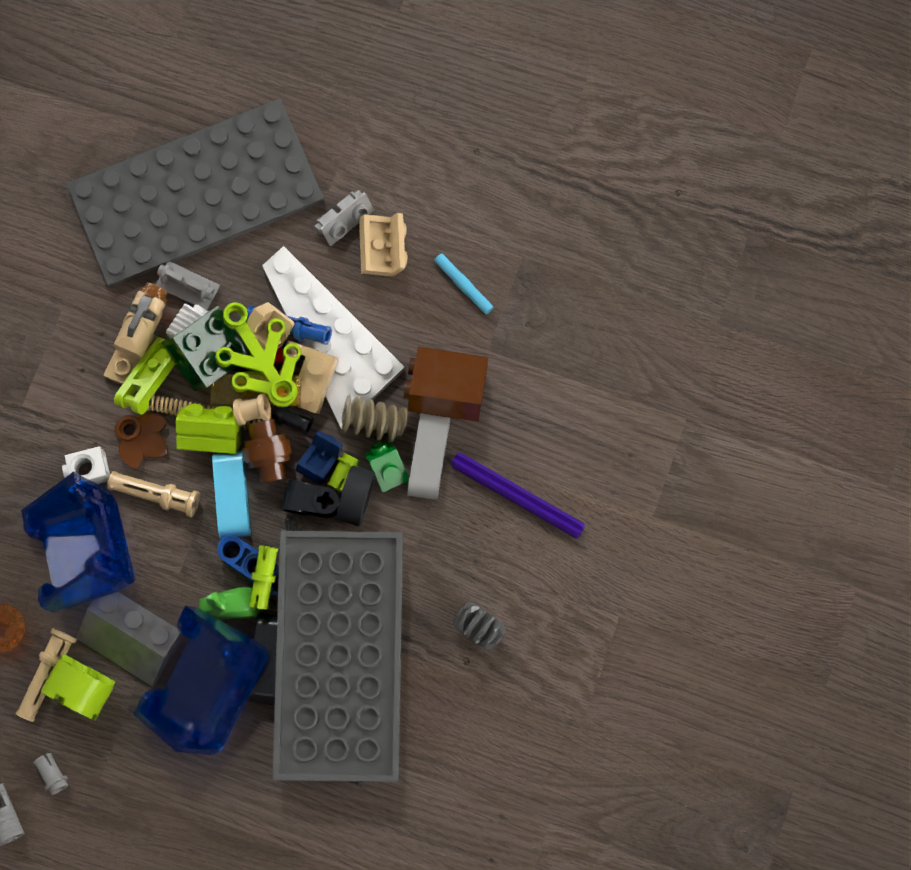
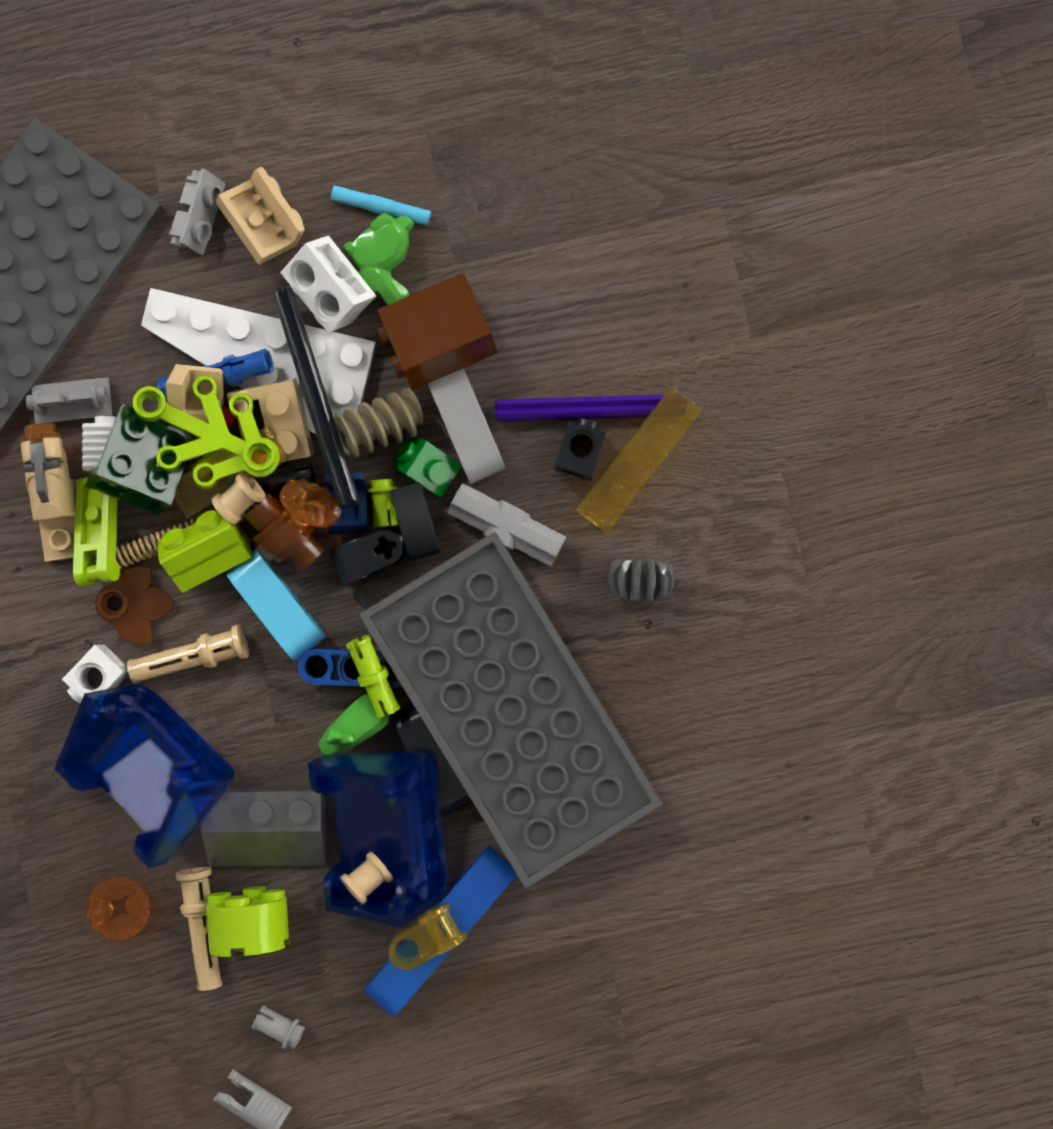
camera: 30 degrees left, 10 degrees up
(173, 707) = (366, 878): none -> tan bush
(188, 770) = (428, 936): none -> clear yellow piece
(198, 777) = (468, 901): none -> blue beam
(295, 441) = (319, 510): none -> clear orange gear
(342, 378) = (315, 398): none -> black axle
(397, 311) = (328, 284): none -> white brick
(416, 536) = (510, 523): none -> light grey piece
(441, 312) = (379, 252): none -> bright green animal
(484, 526) = (574, 465): none -> black brick
(527, 547) = (639, 459): none -> clear yellow tile

